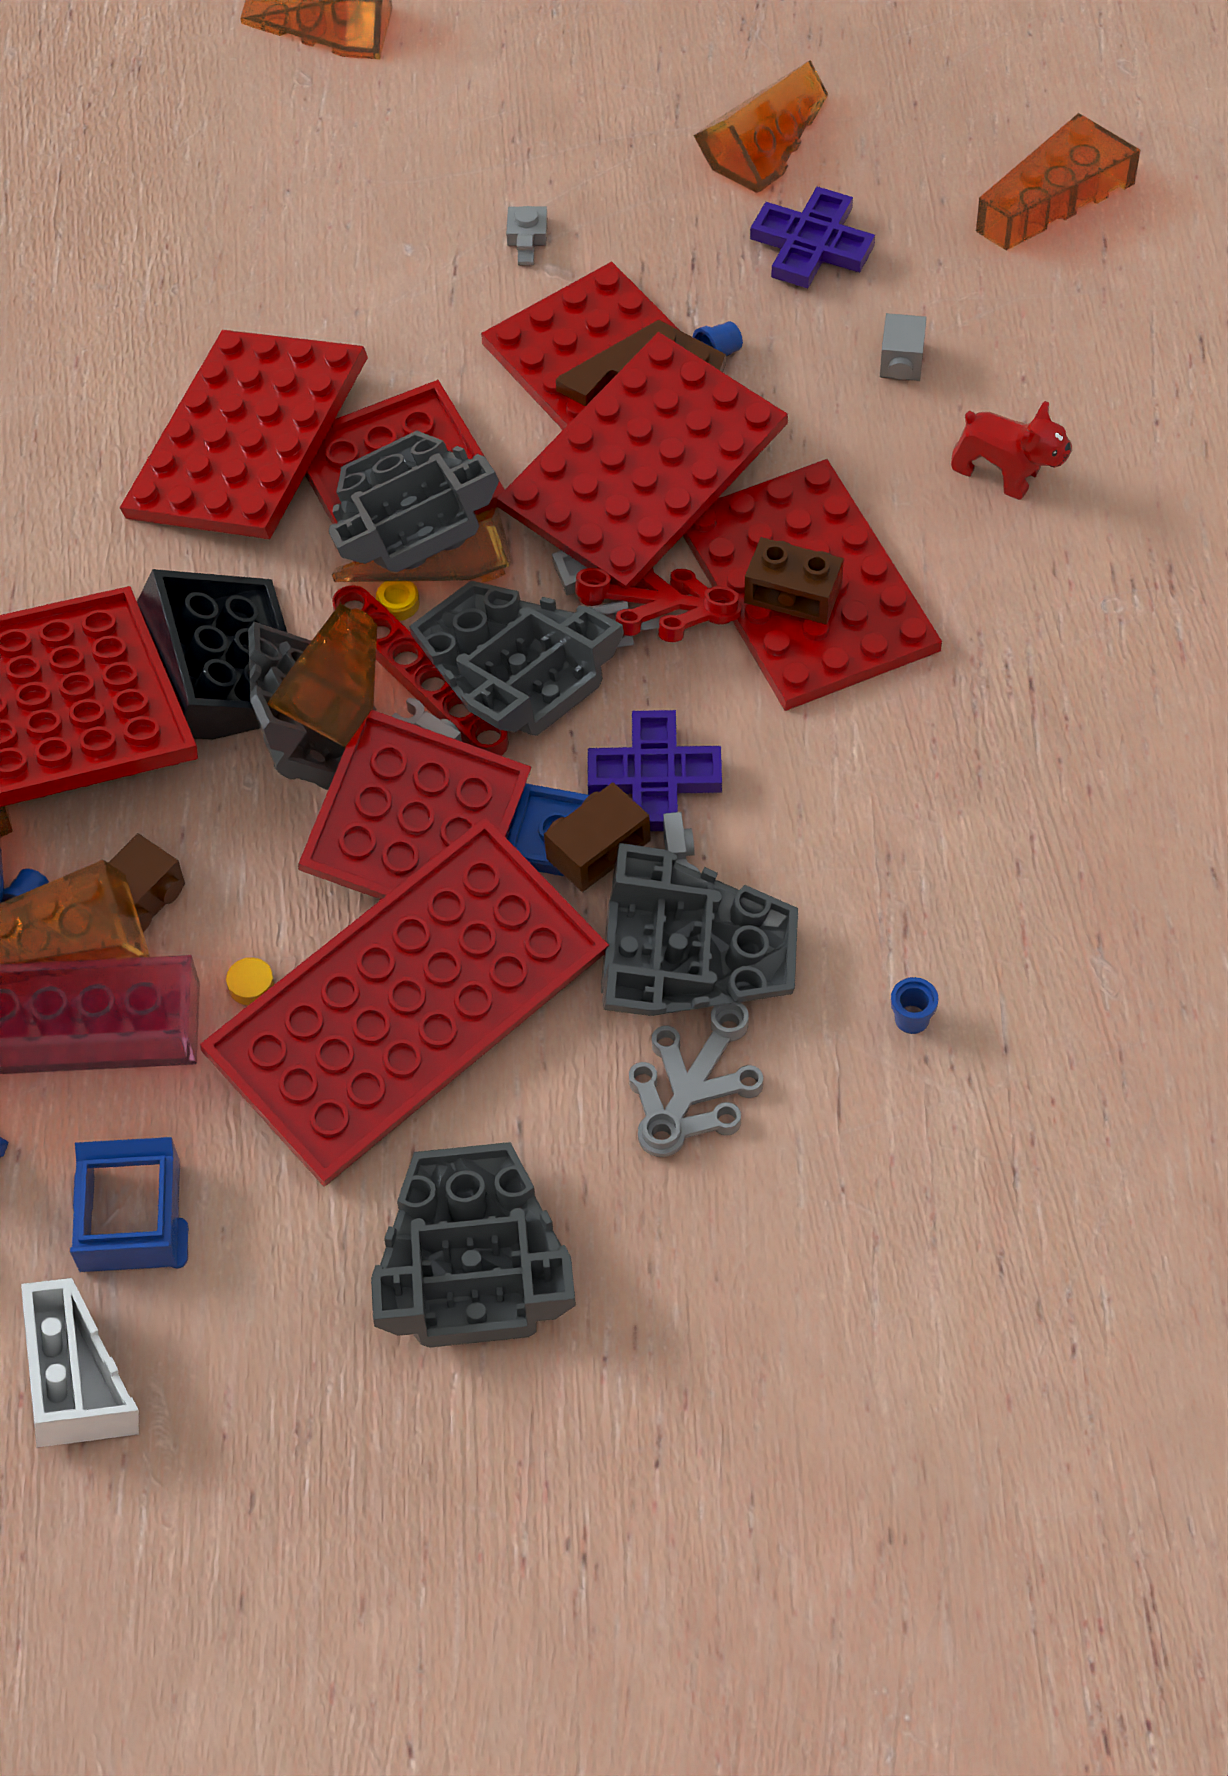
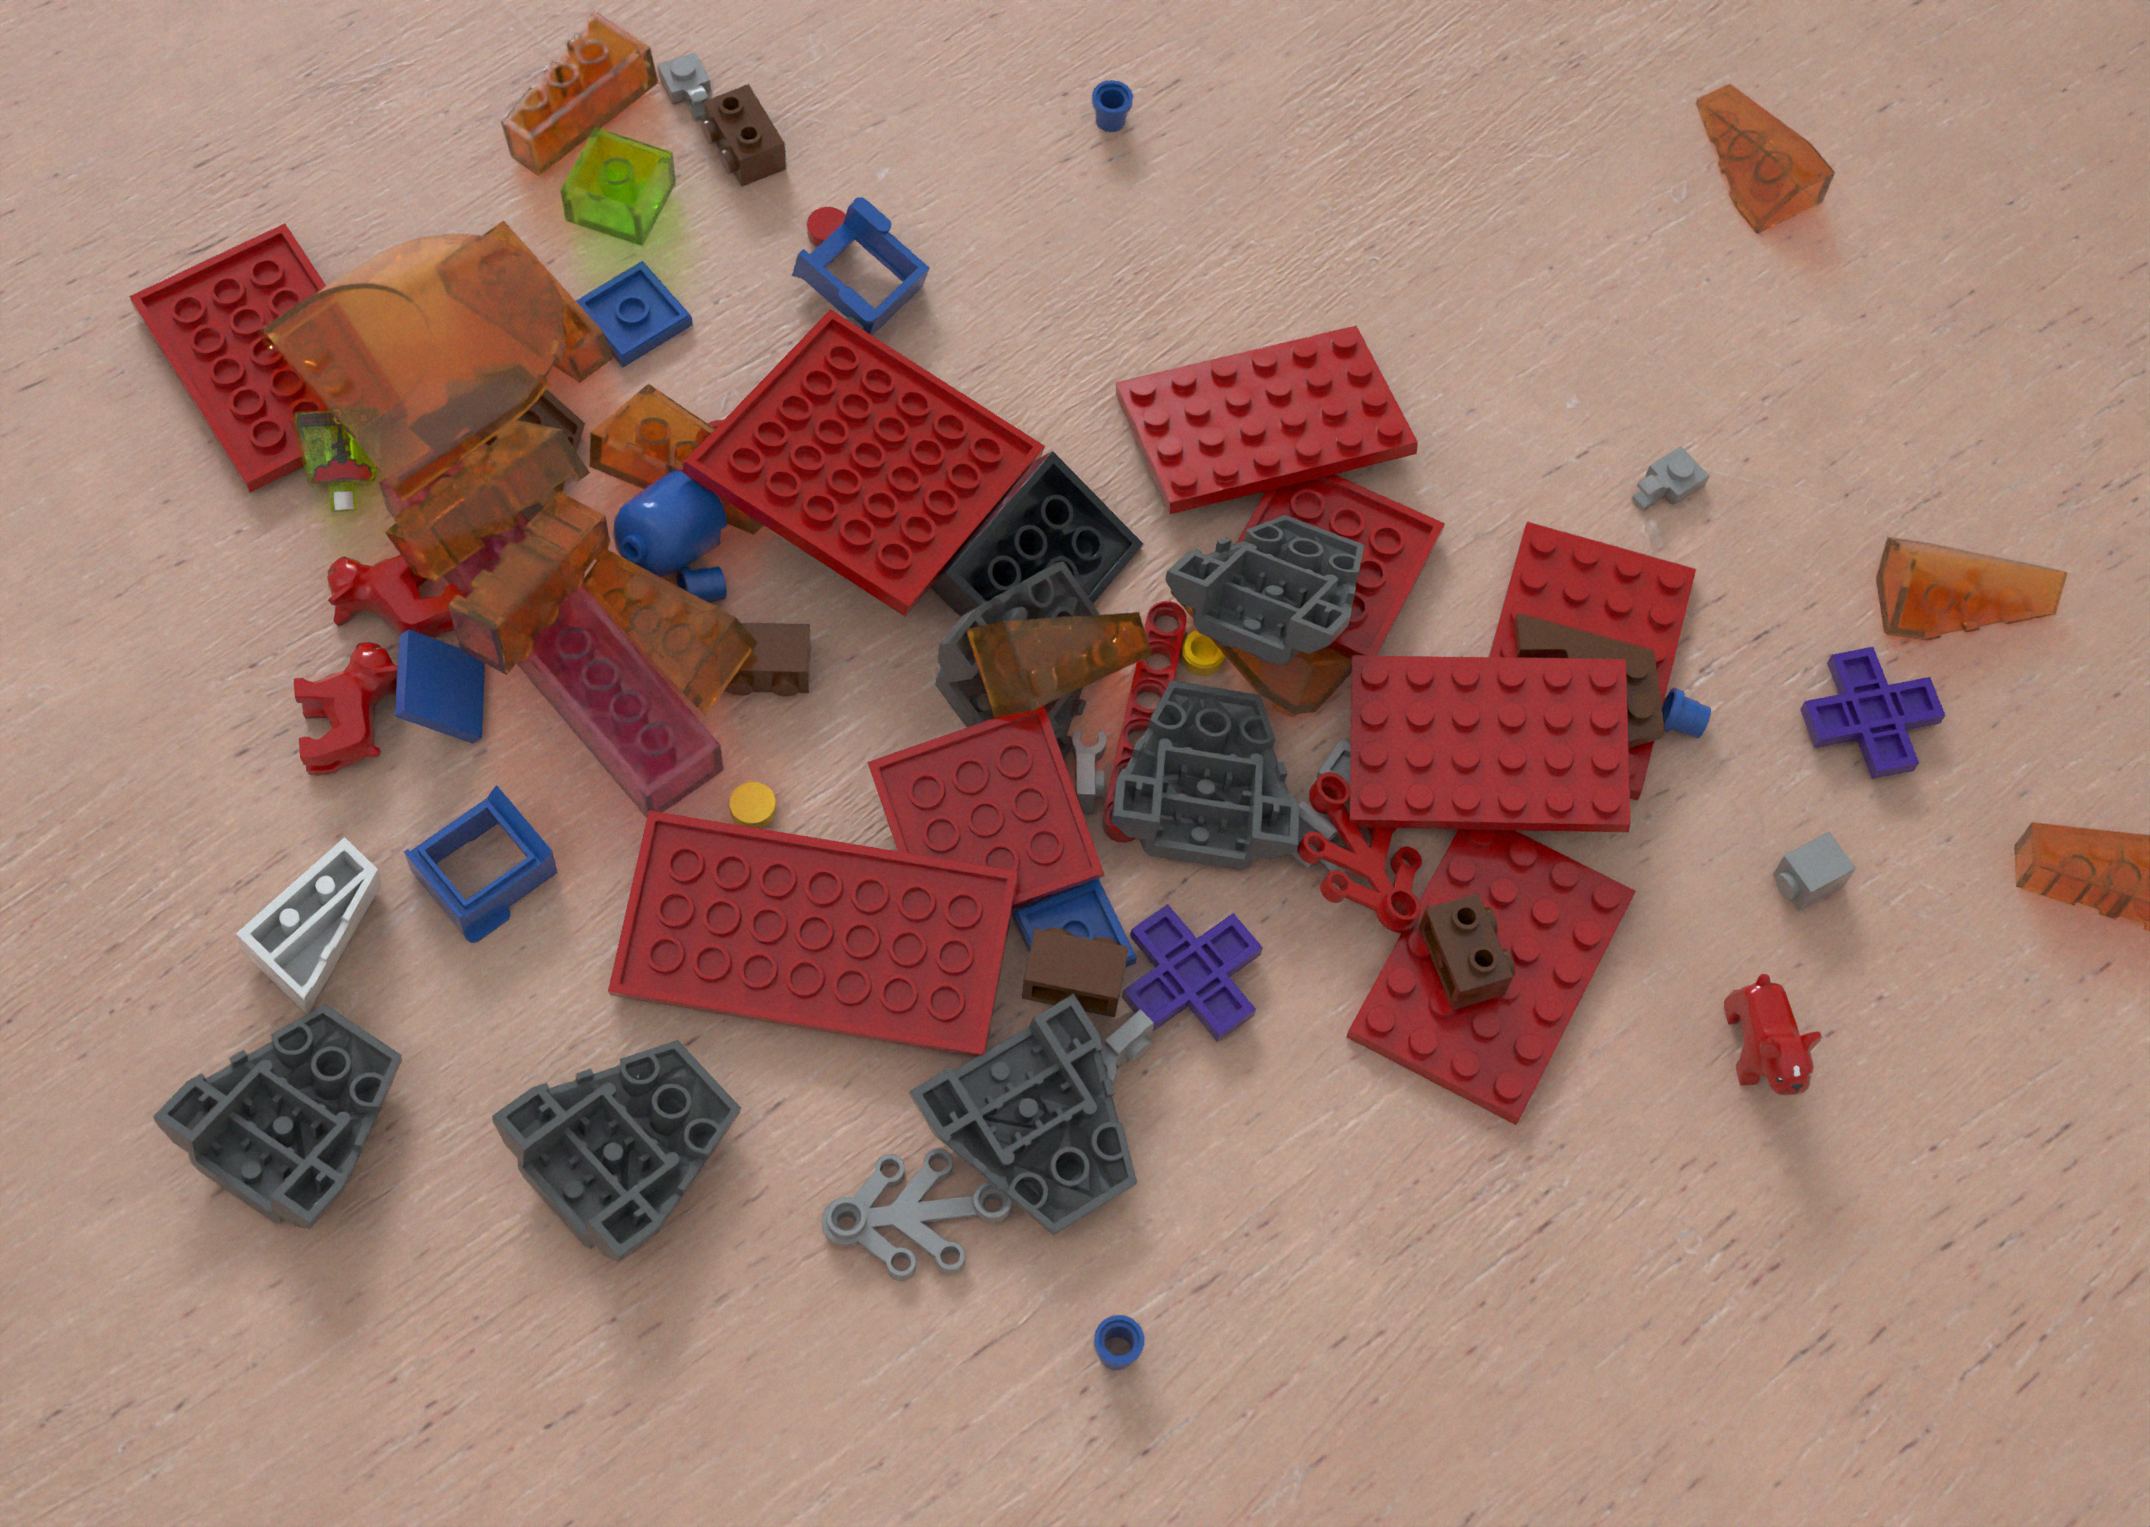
camera: 45 degrees right, 5 degrees up
(232, 1494) = (287, 1117): none -> dark grey wedge

